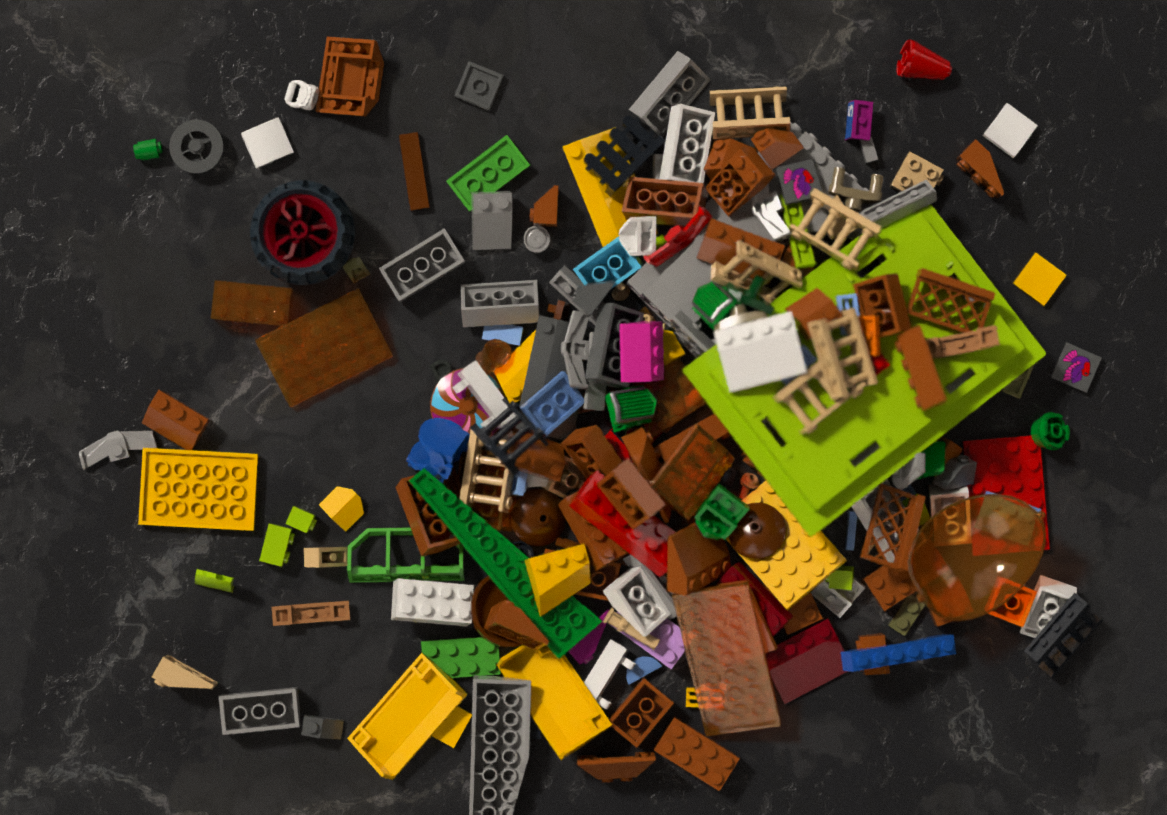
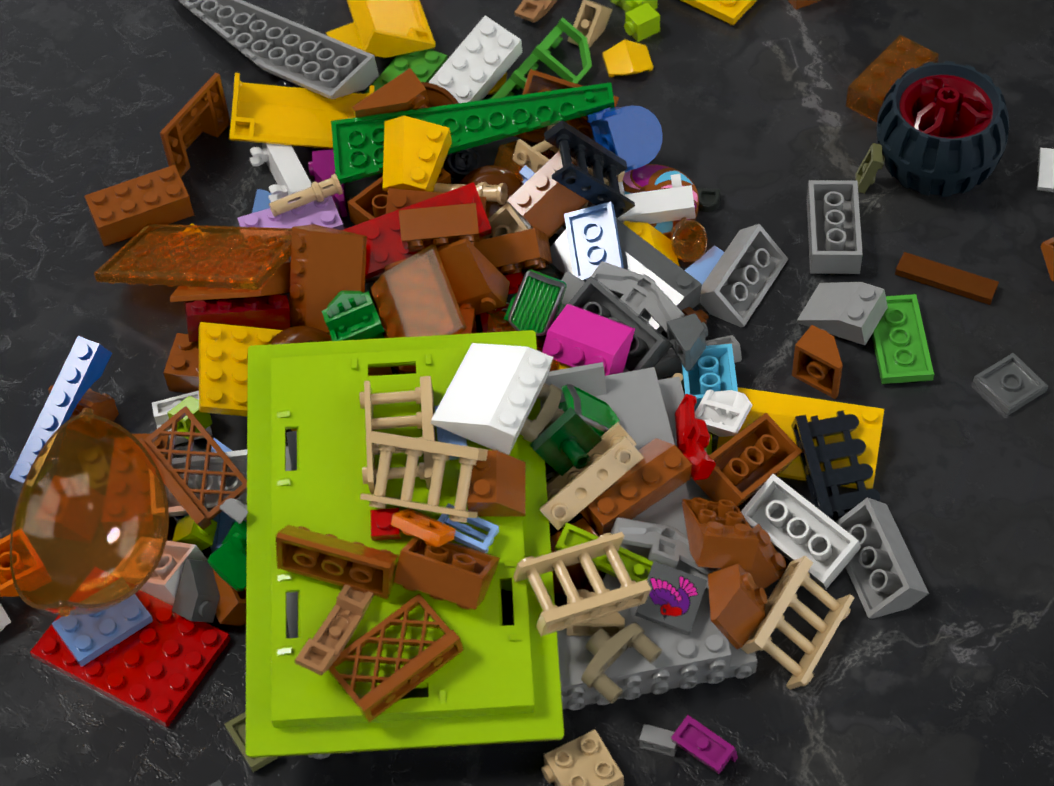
camera: 130 degrees right, 35 degrees down
(324, 348) = (803, 111): clear orange plate -> none
(536, 239) = (785, 341): light grey wheel -> none
(552, 512) = (493, 193): none -> tan pin
(637, 600) = (328, 206): white slope -> none
(640, 712) = (221, 178): dark orange brick -> none
(805, 660) = (140, 345): dark red slope -> none
(901, 204) = (560, 694): light grey slope -> none
(1050, 431) = (155, 728): green cone -> none

